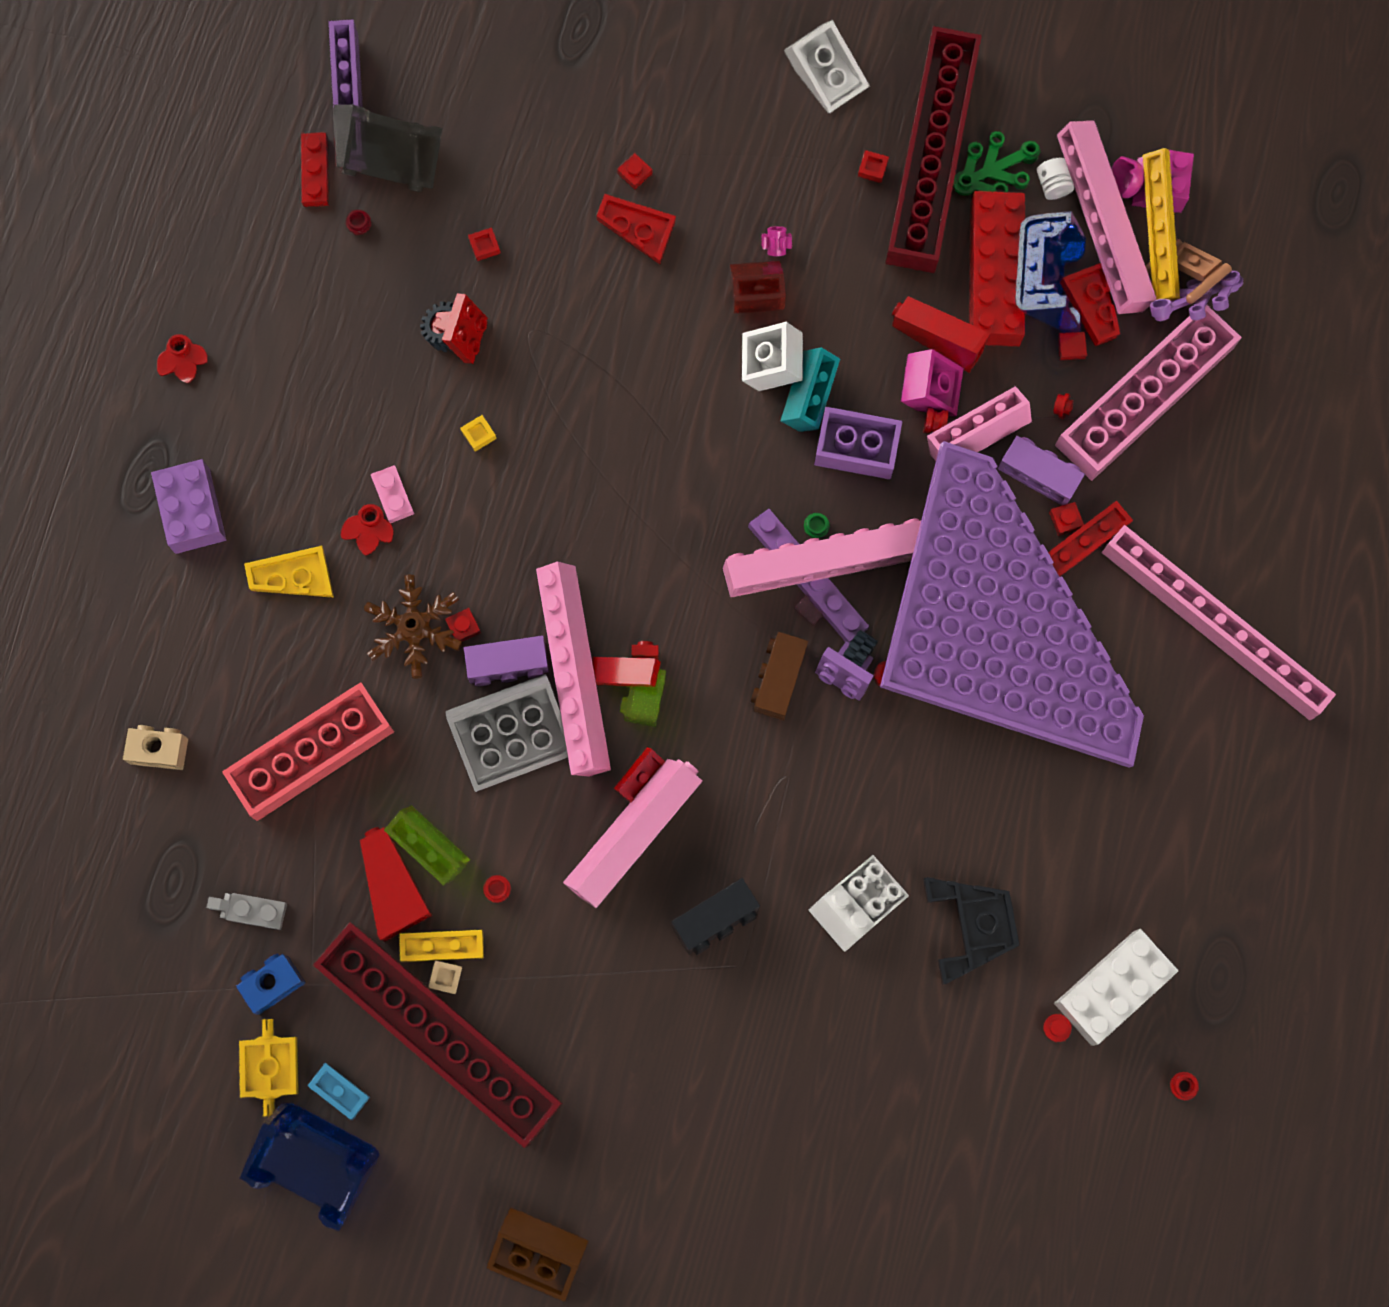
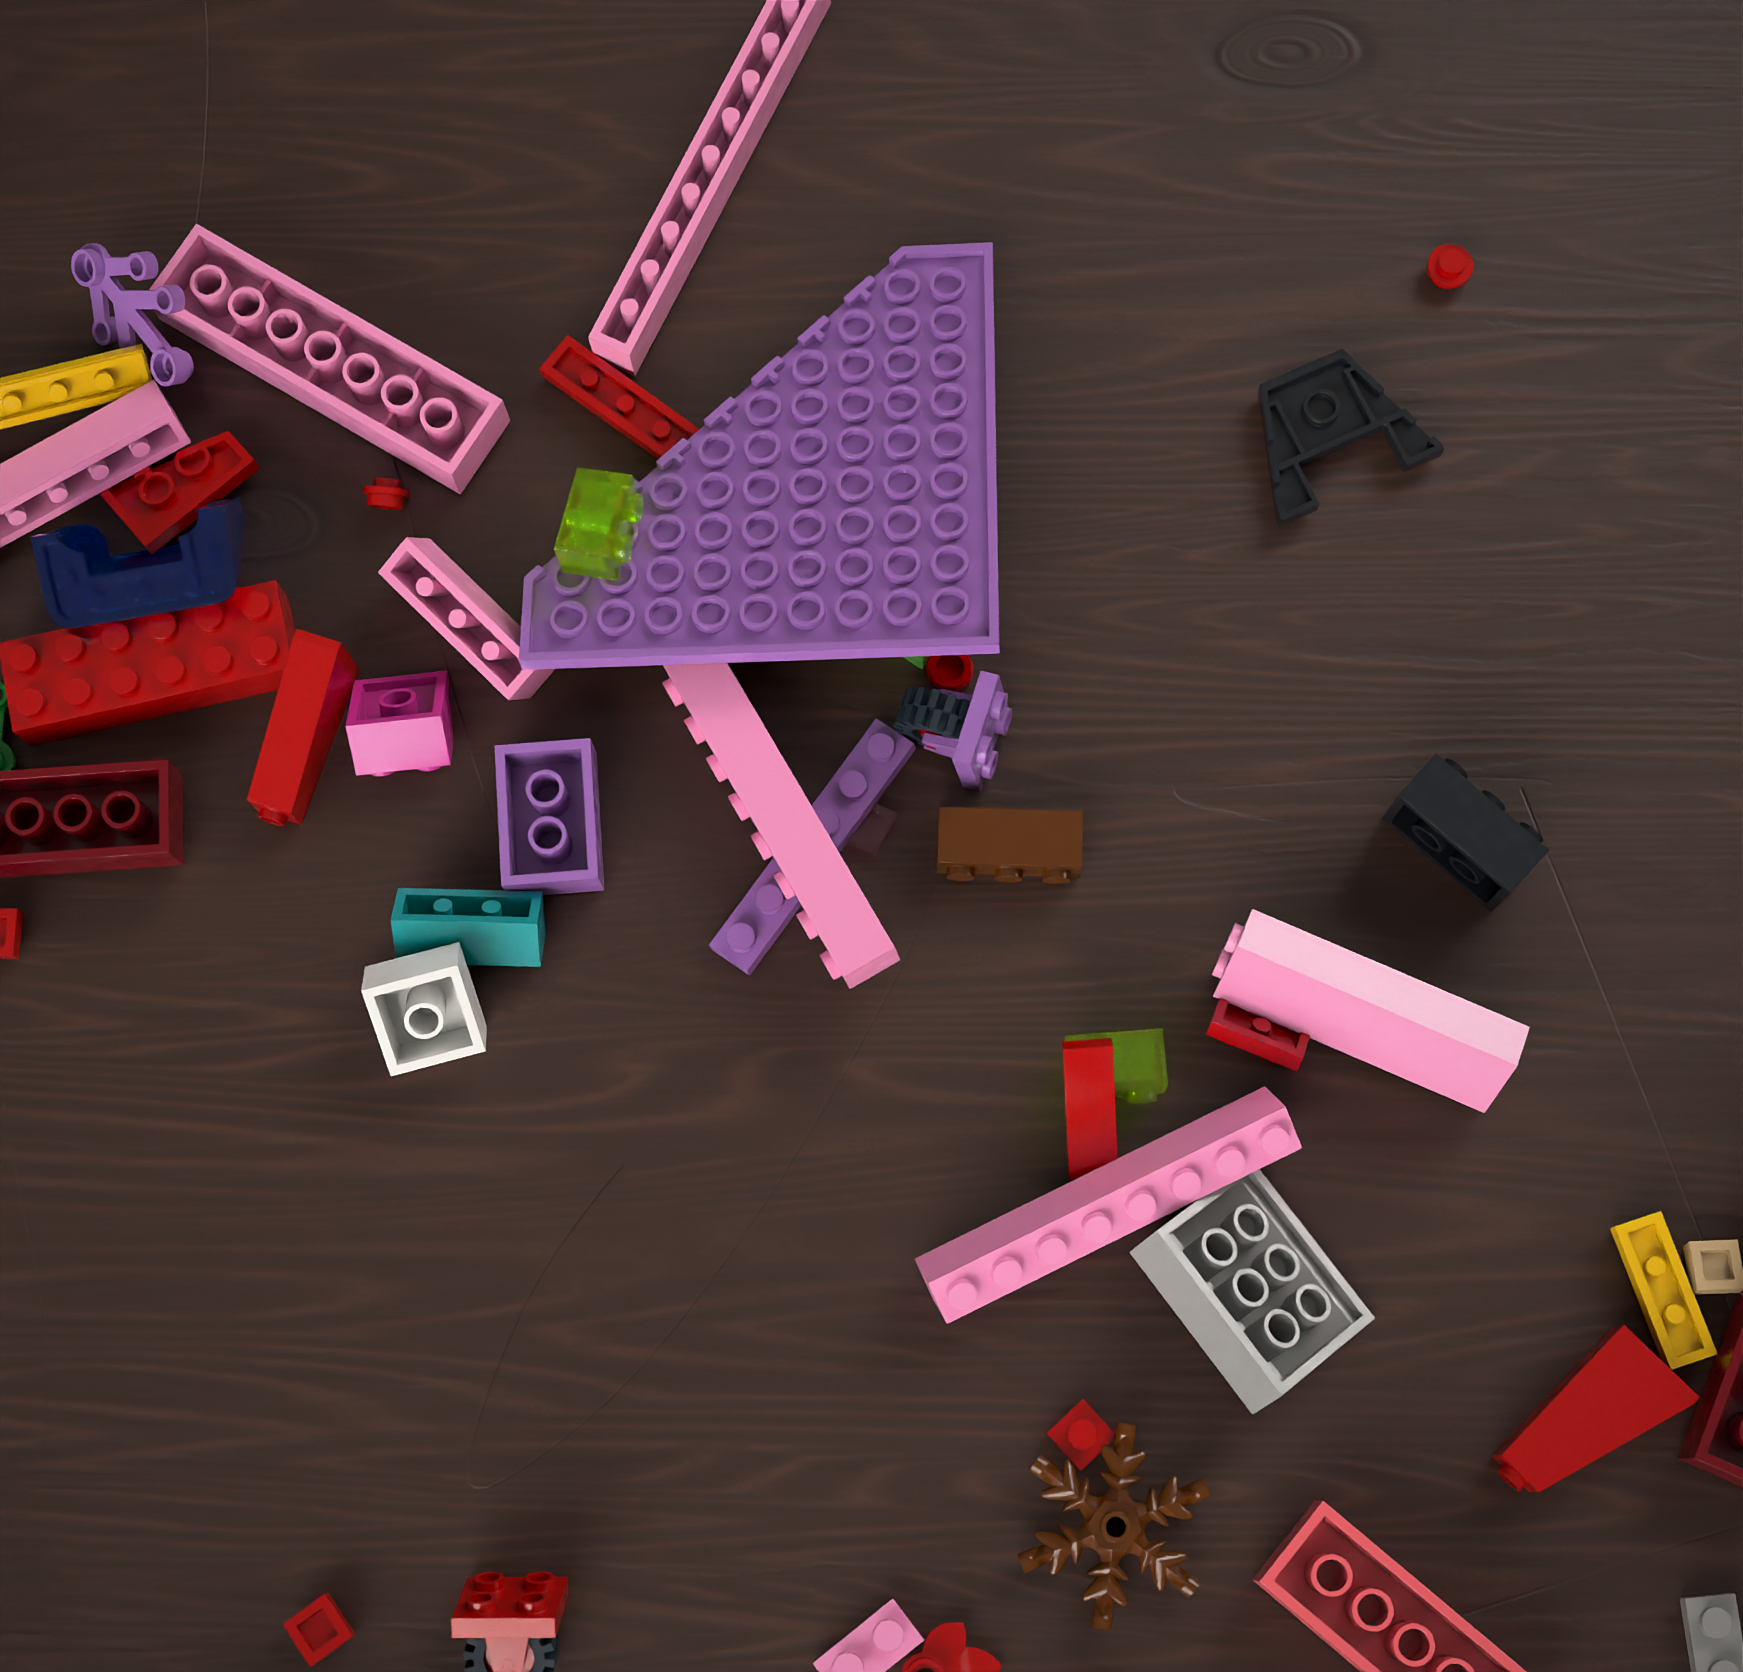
camera: 100 degrees left, 0 degrees up
(427, 845) = (1505, 1368): clear neon green brick -> none
(478, 433) = (706, 1520): yellow plate -> none
(497, 888) = (1531, 1225): red plate -> none
(506, 660) = (1126, 1330): medium lavender brick -> none
(634, 171) = (98, 1380): red plate -> none
(639, 225) = (210, 1339): red wing -> none
(645, 649) = (1035, 1087): red plate -> none
(757, 287) = (284, 1078): clear red slope -> none
(776, 241) = (187, 1067): dark pink gear -> none
(816, 525) = (717, 855): green plate -> none
(858, 903) = (1357, 615): white slope -> none
(935, 420) = (470, 699): red wheel -> none
(1010, 499) = (598, 524): none -> clear neon green brick
(1041, 470) = (515, 502): medium lavender brick -> none
(1066, 518) = (589, 444): red plate -> none
(1072, 346) = (267, 507): red tile -> none
(1116, 987) = (1359, 190): white brick -> none
(1192, 1082) = (1478, 54): red plate -> none
(1199, 266) = (75, 319): nougat plate -> none

